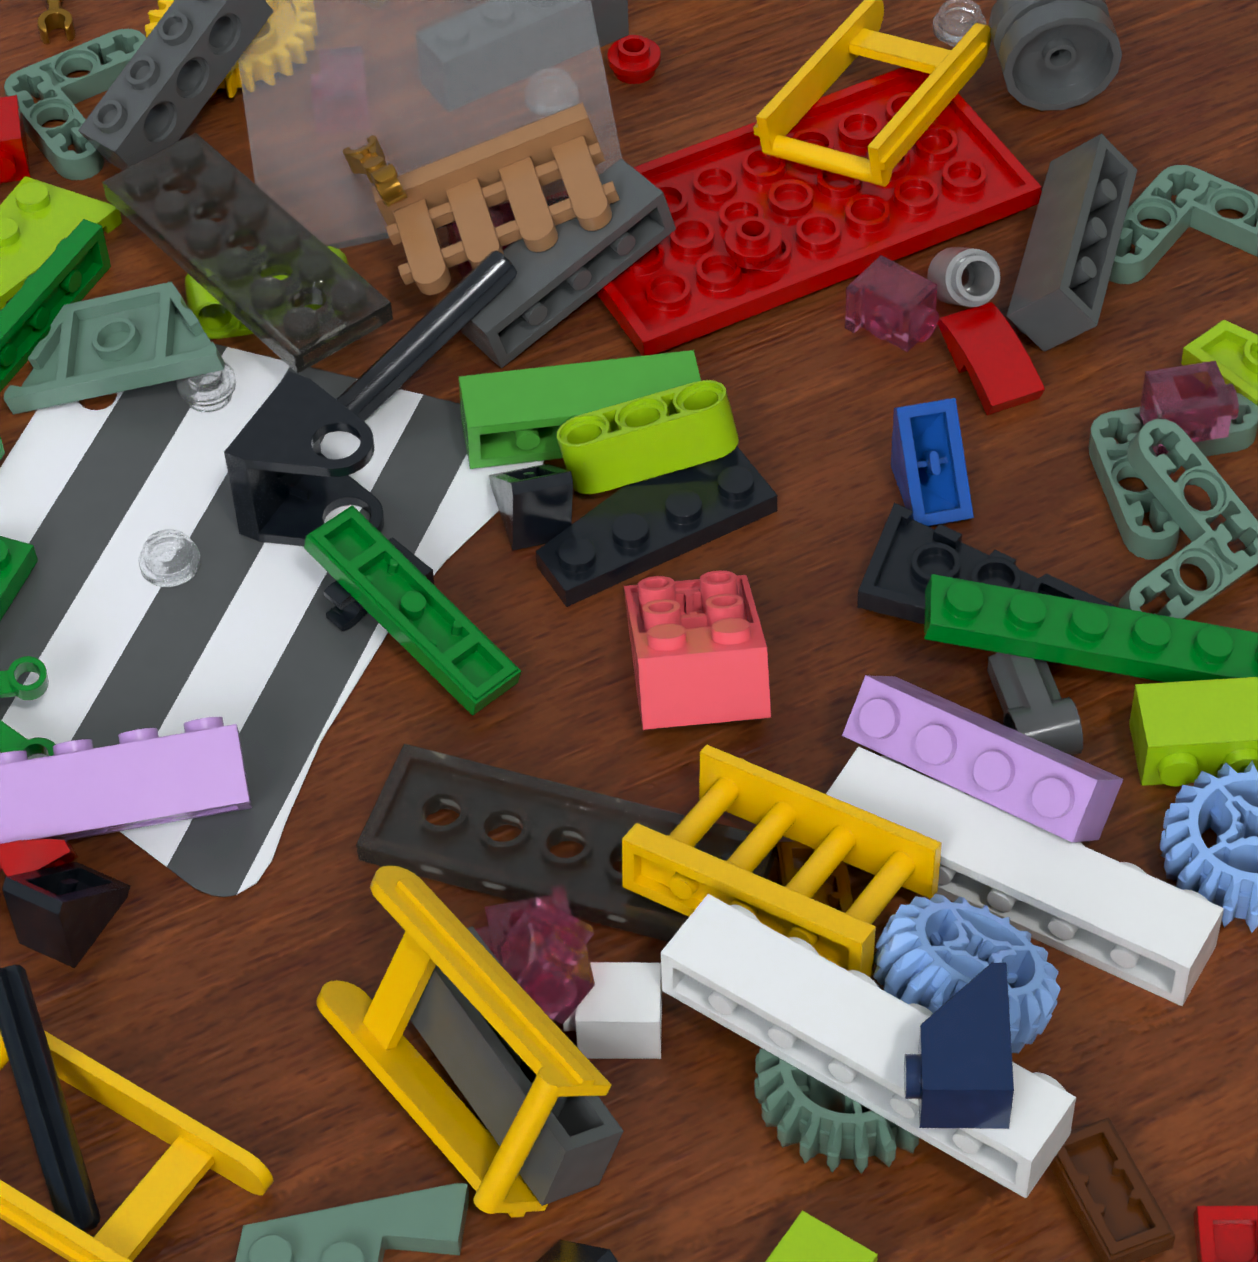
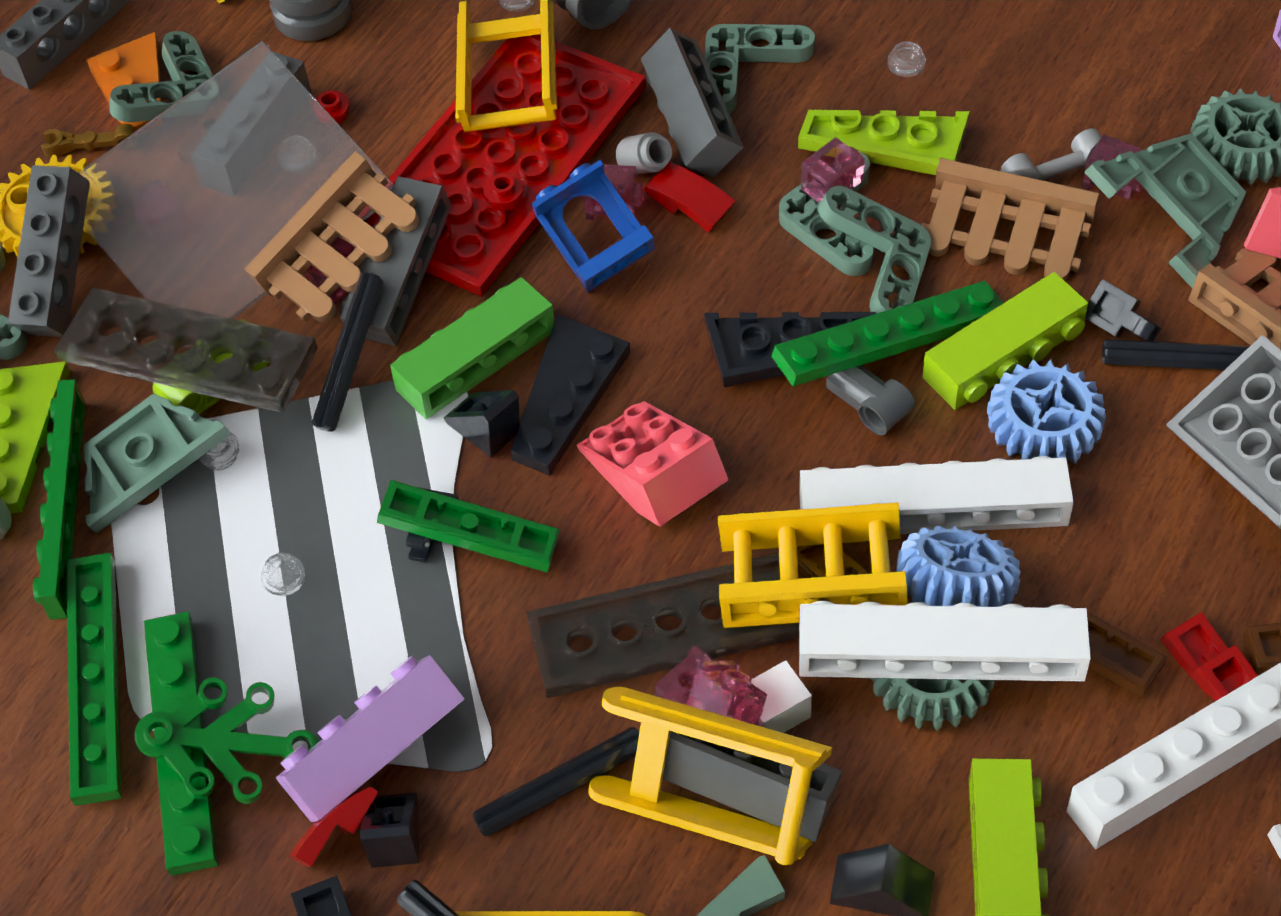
camera: 30 degrees left, 5 degrees up
(277, 467) = (330, 478): black hose -> none
(277, 962) = (556, 782): none -> black axle
(371, 161) = (225, 253): pearl gold piece -> none
(648, 436) = (533, 343): lime beam -> none
(837, 383) = (592, 182): none -> blue panel
(931, 462) = (706, 278): blue slope -> none
(965, 1058) = (1025, 619): dark blue slope -> none
(983, 758) = (872, 440): lavender brick -> none

